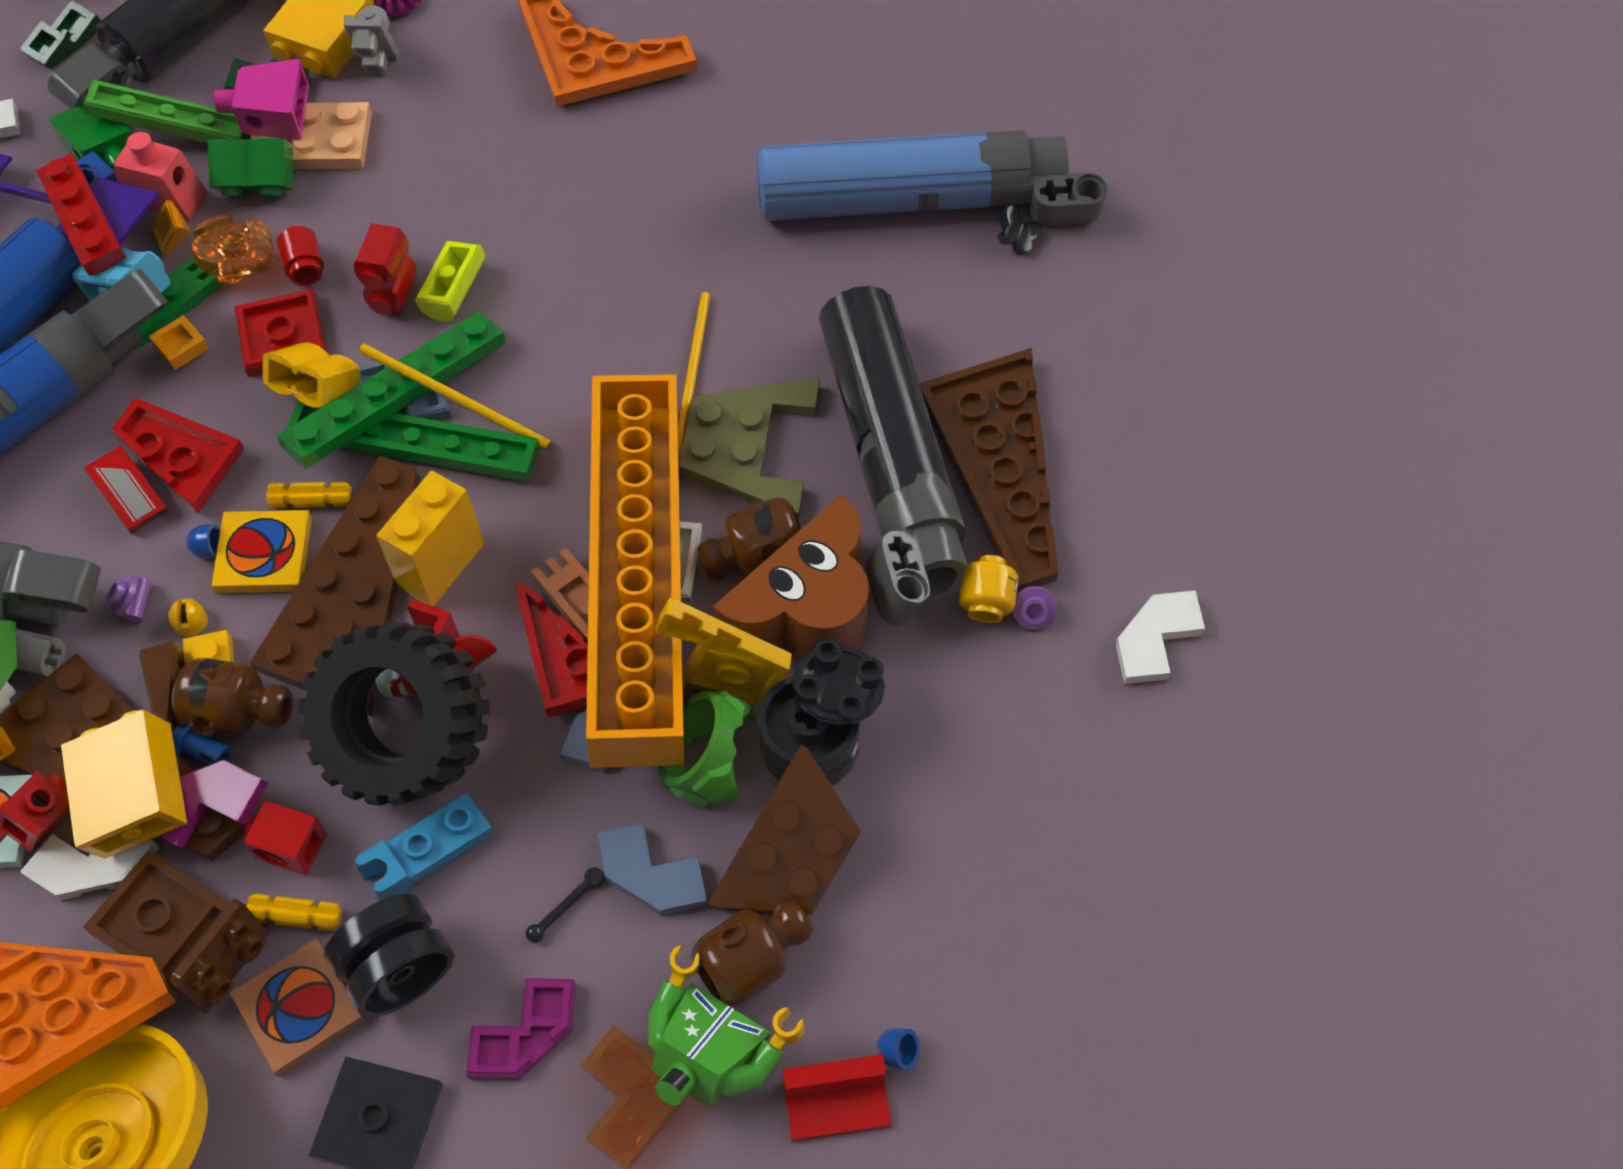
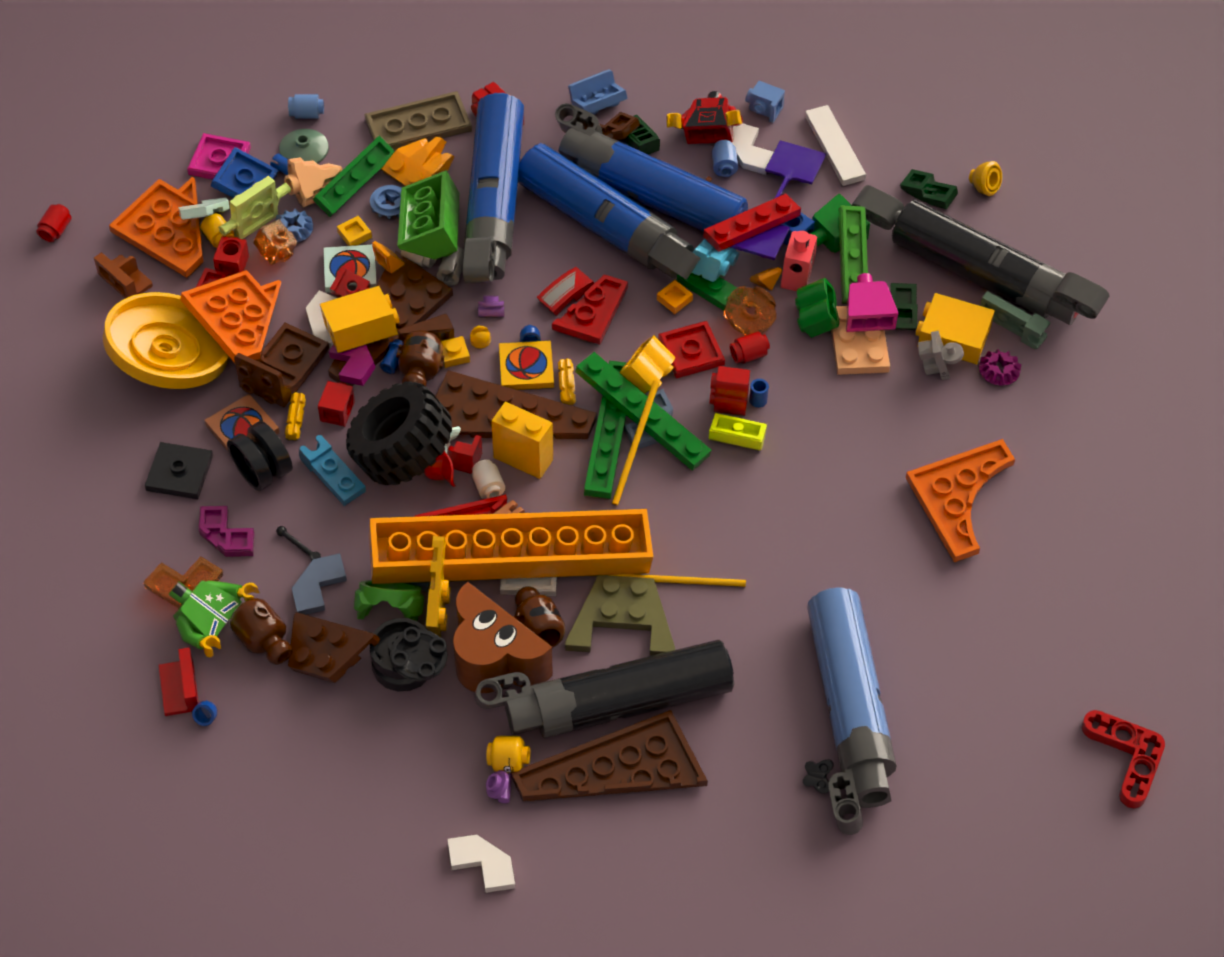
camera: 85 degrees right, 5 degrees down
(484, 607) = (487, 479): none -> white brick

